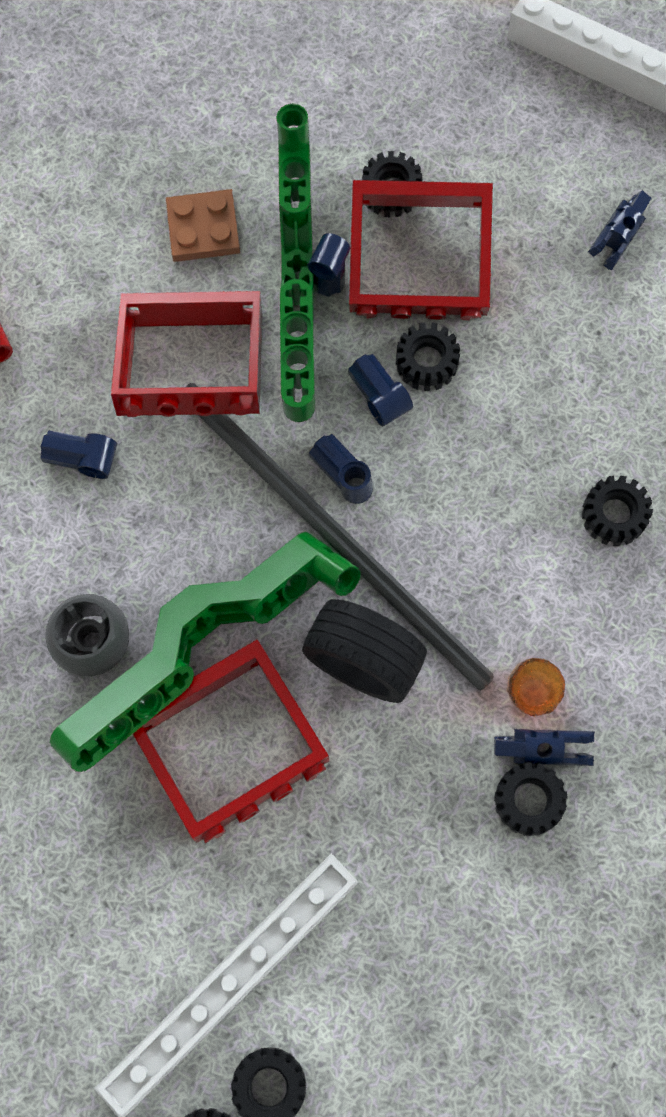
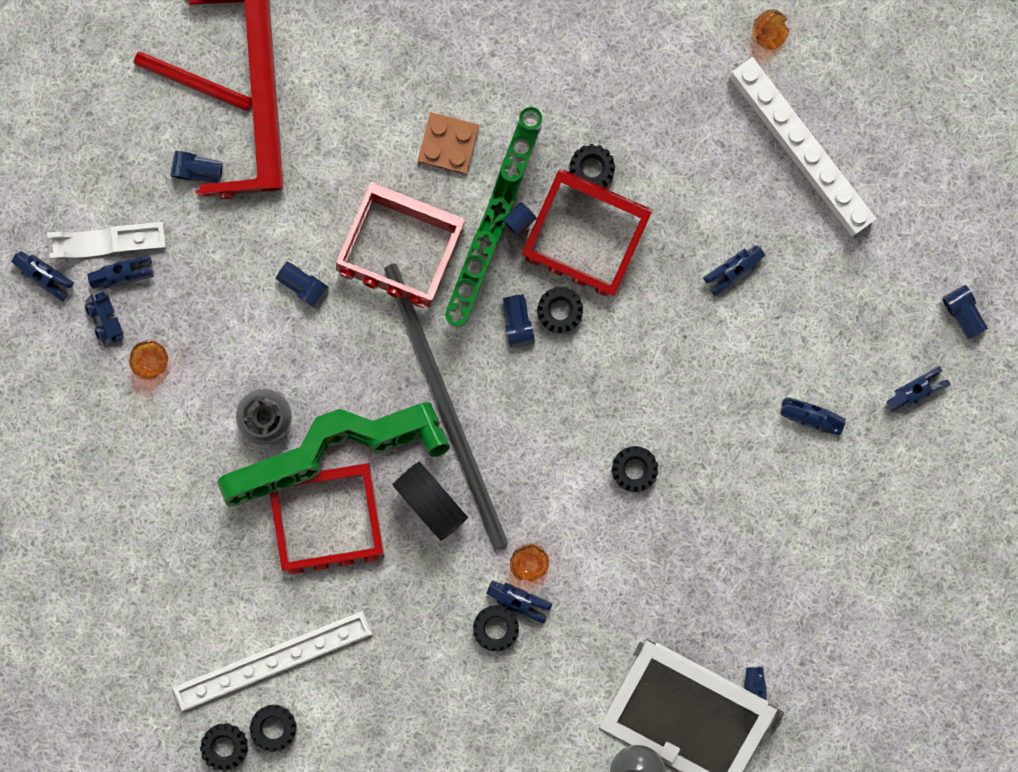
camera: 15 degrees right, 15 degrees up
(341, 468) = (469, 364): dark blue piece -> none

